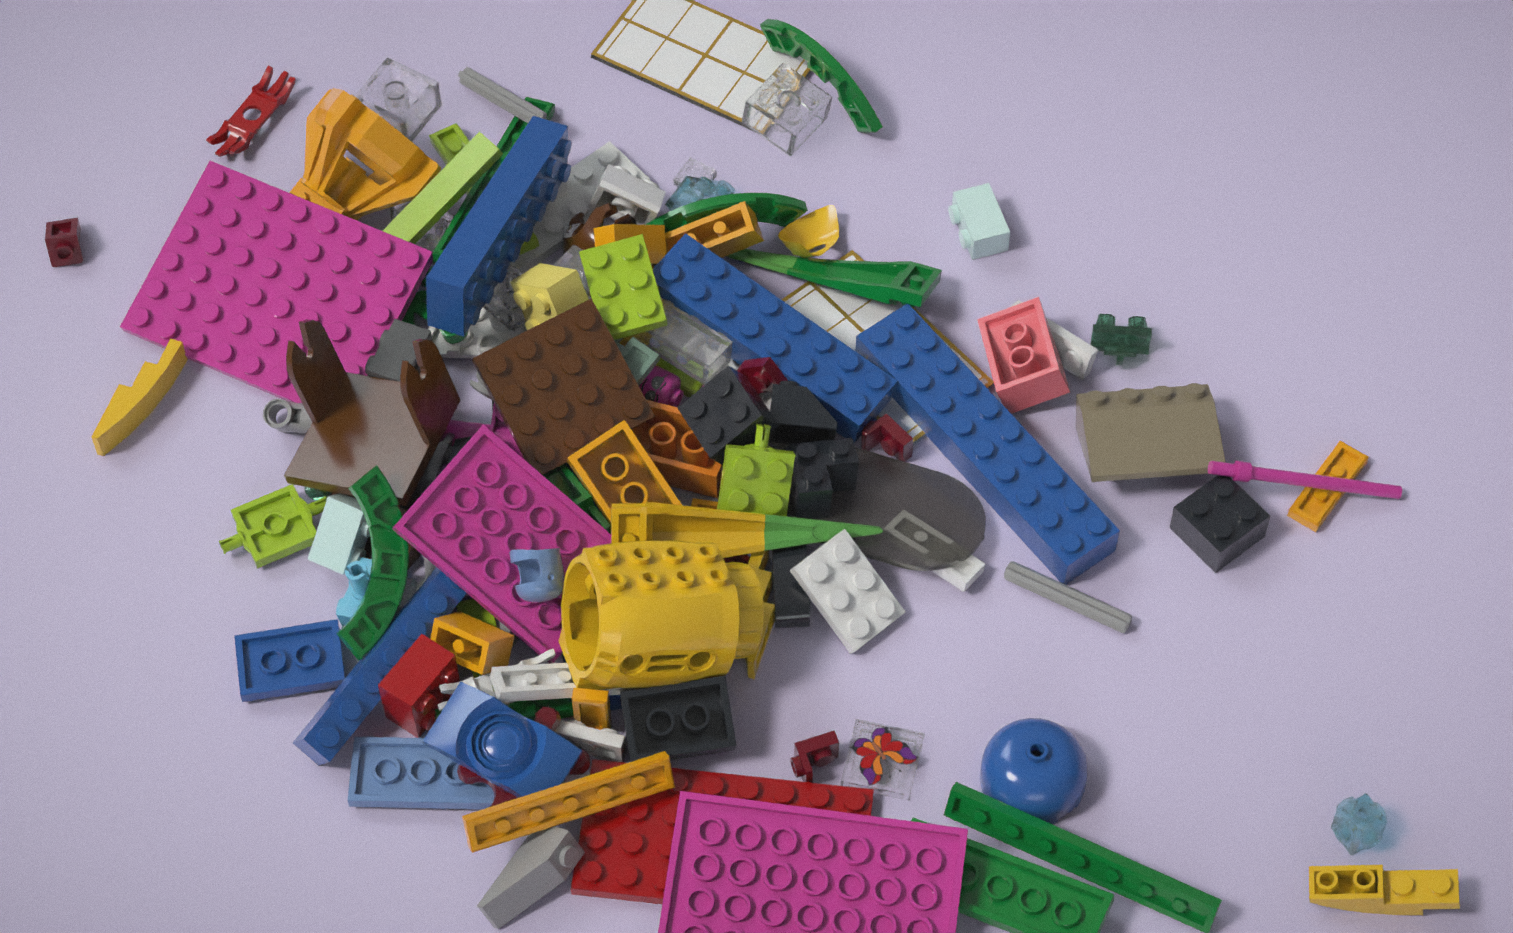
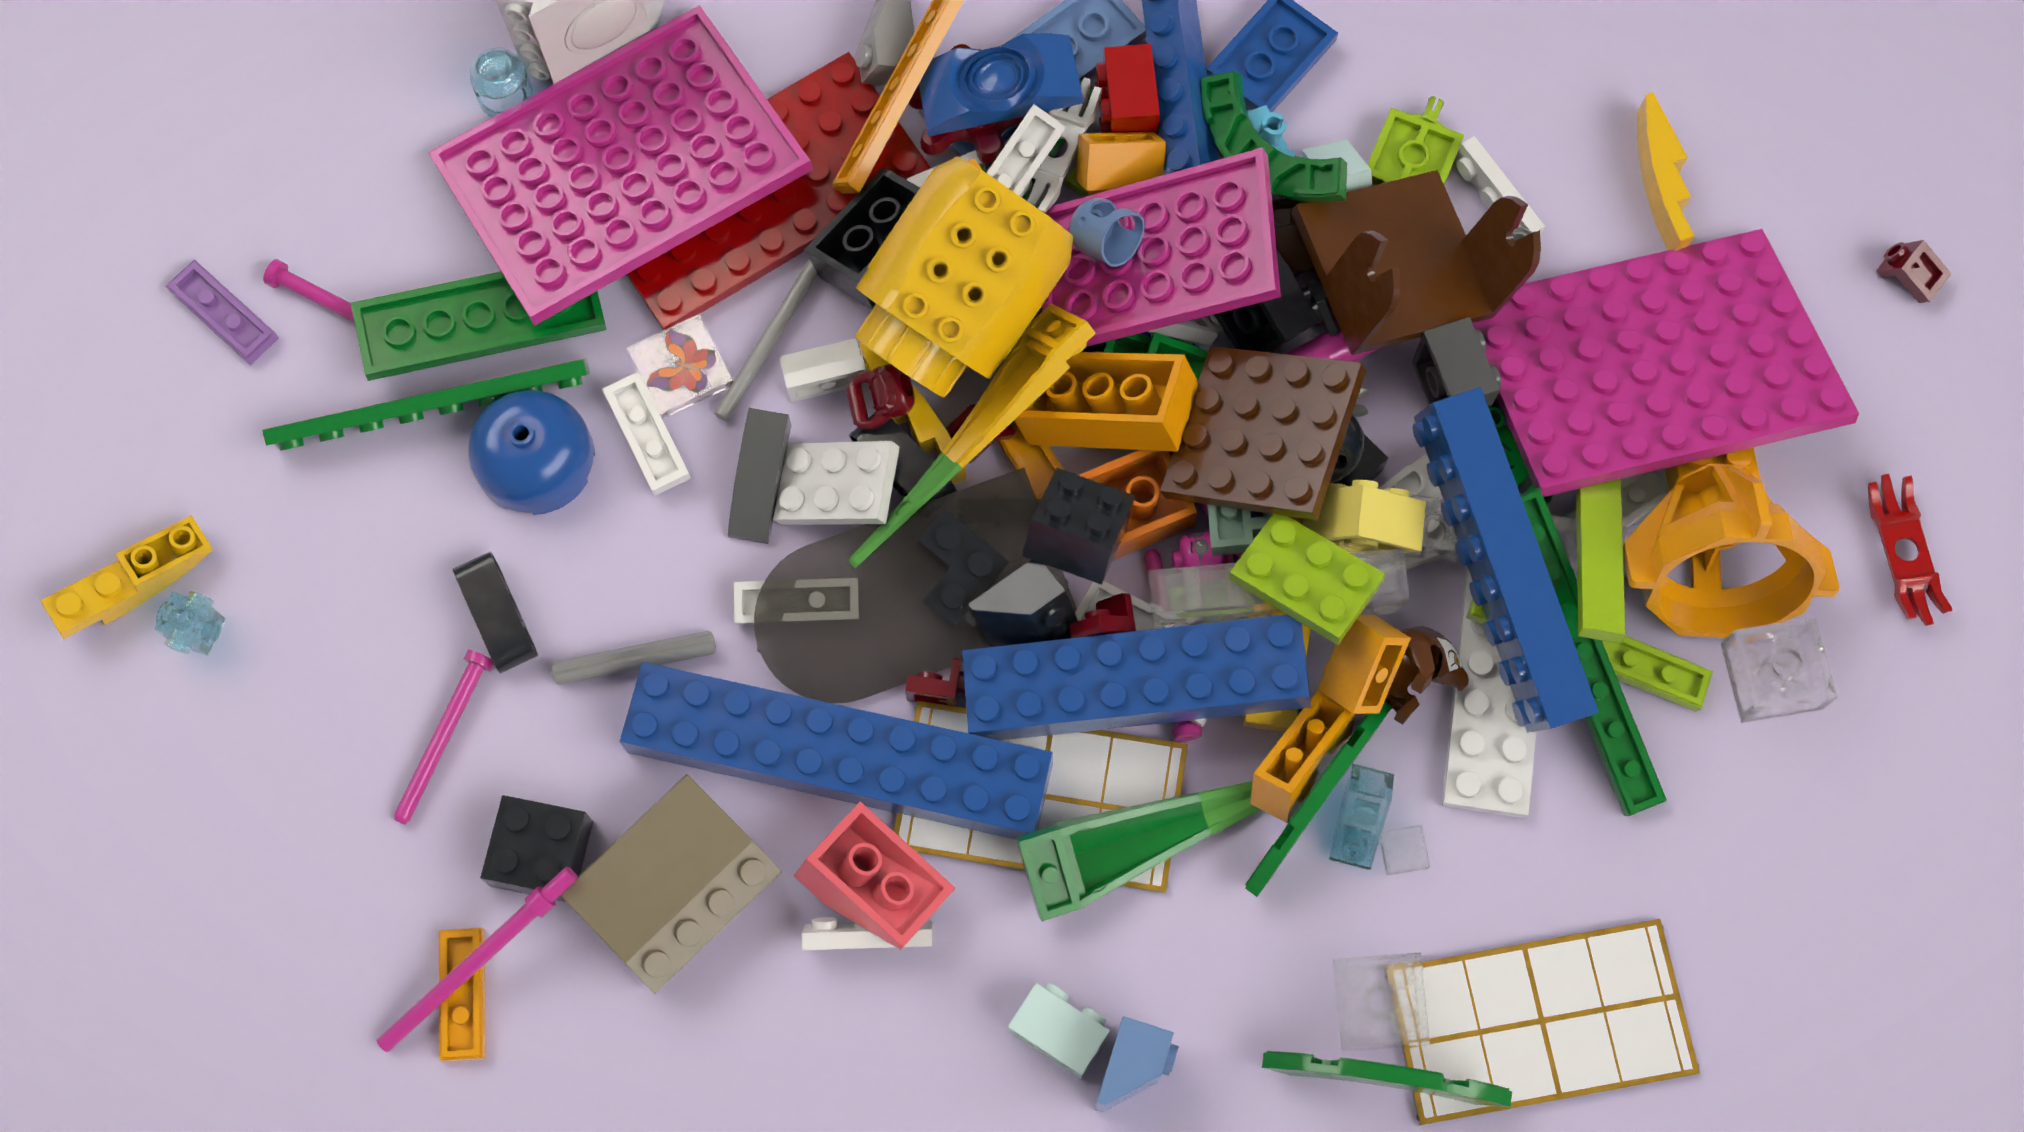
camera: 140 degrees right, 15 degrees up
(250, 459) = (1479, 168): none -> white plate
(499, 95) = (1682, 767): light grey axle -> none
(629, 194) = (1430, 737): white slope -> none
(722, 760) = (766, 342): none -> light grey bar
(756, 477) = (998, 491): lime plate -> none
(773, 604) = (890, 393): none -> dark red piece
(788, 681) = (821, 369): none -> white panel
(811, 231) = (1222, 881): yellow piece -> none
(814, 751) = (742, 319): dark red bracket -> none
(890, 642) = (758, 475): none -> dark grey slope
(944, 727) = (646, 433): none -> white plate
(954, 165) = (1136, 1062): none -> medium blue slope
(1121, 340) = (782, 1011): clear green hips -> none
(1139, 685) = (495, 612): none -> black beam
(1175, 664) = (476, 664): none -> dark pink bar

